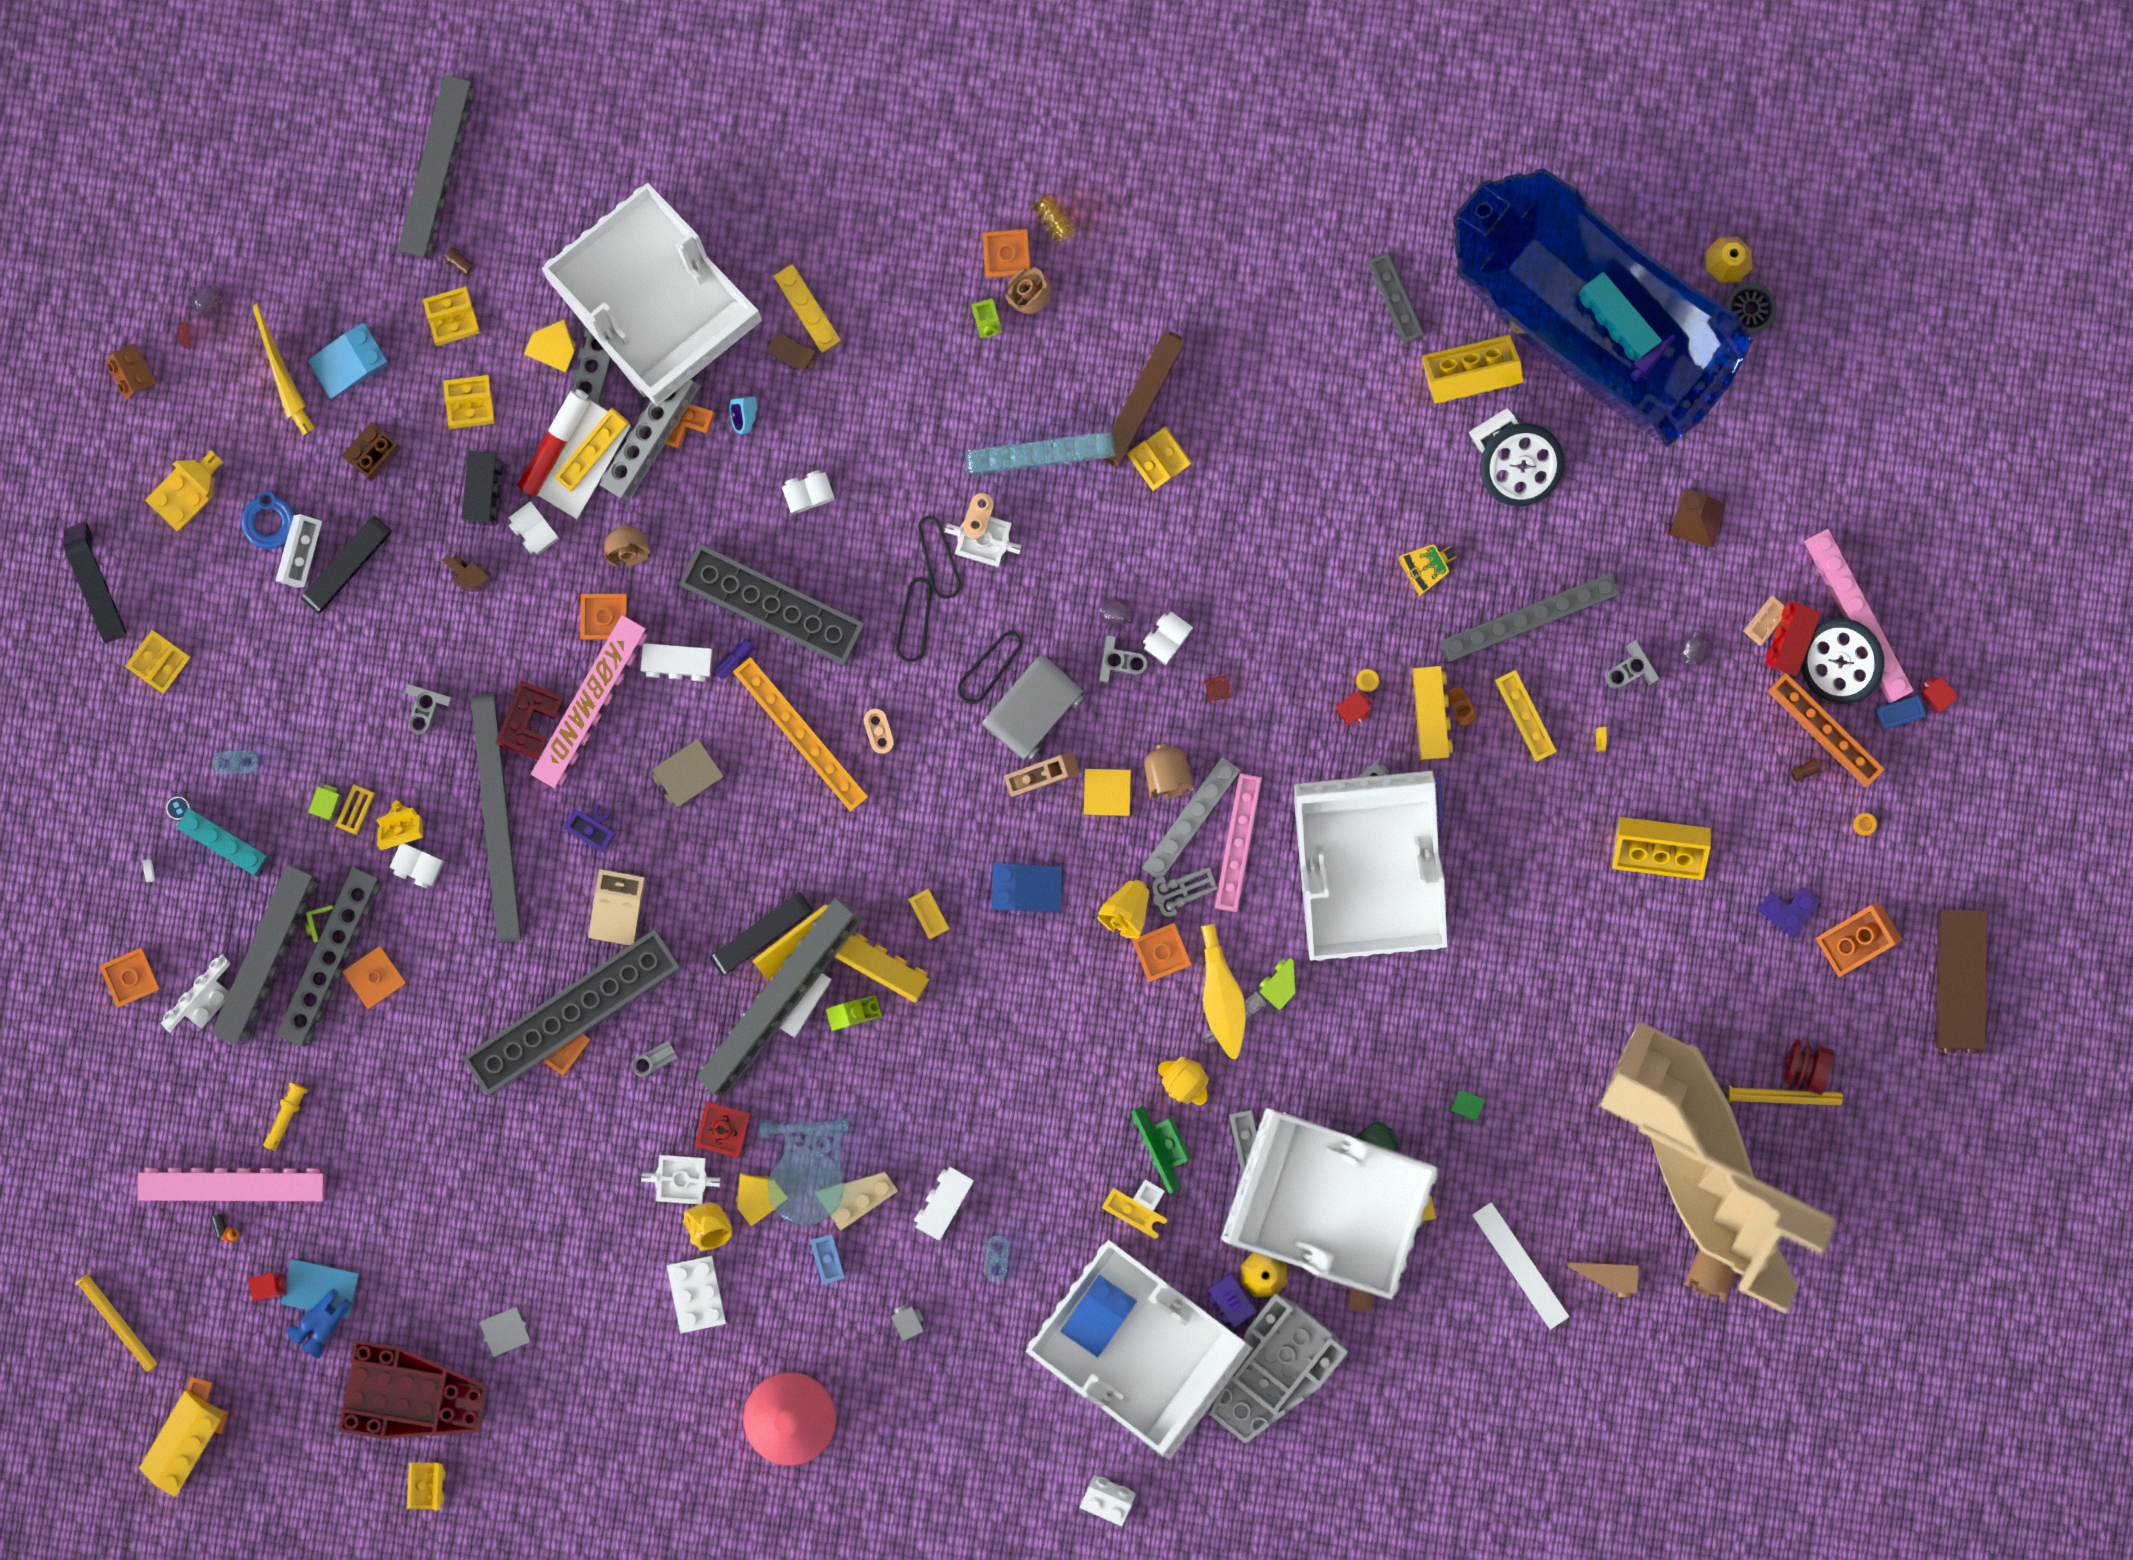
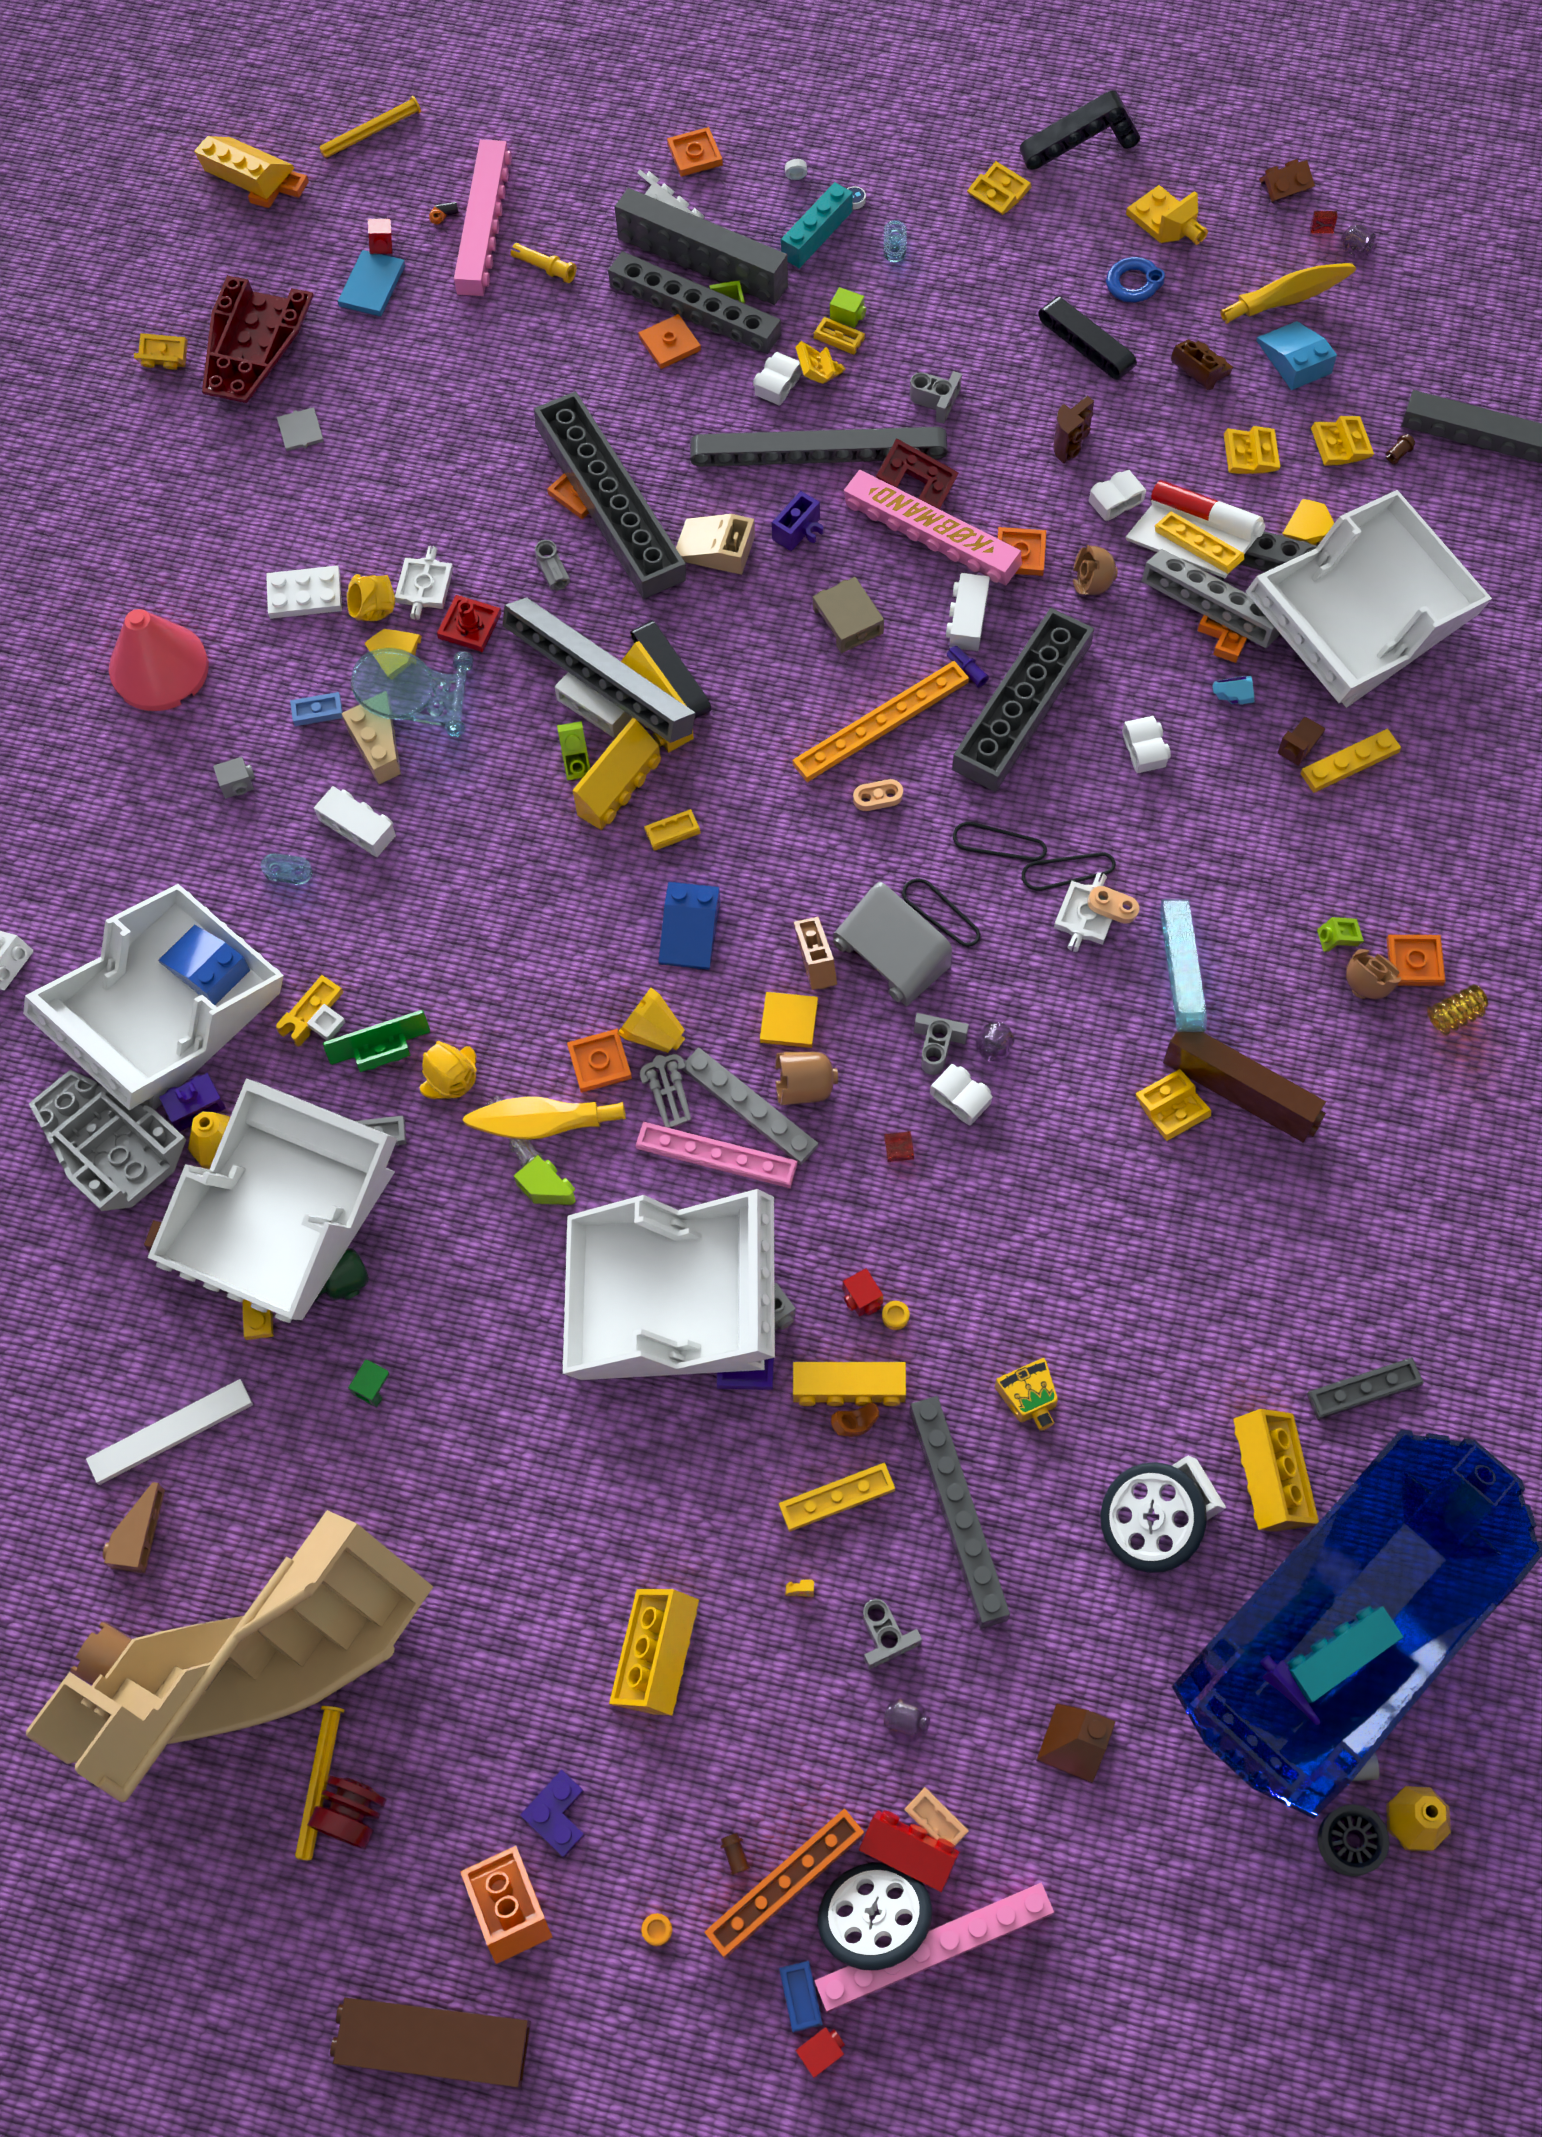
camera: 100 degrees right, 20 degrees down
(298, 551) = (1102, 295): white brick -> none
(323, 1320) = (333, 272): blue piece -> none
(482, 488) = (1161, 445): black brick -> none

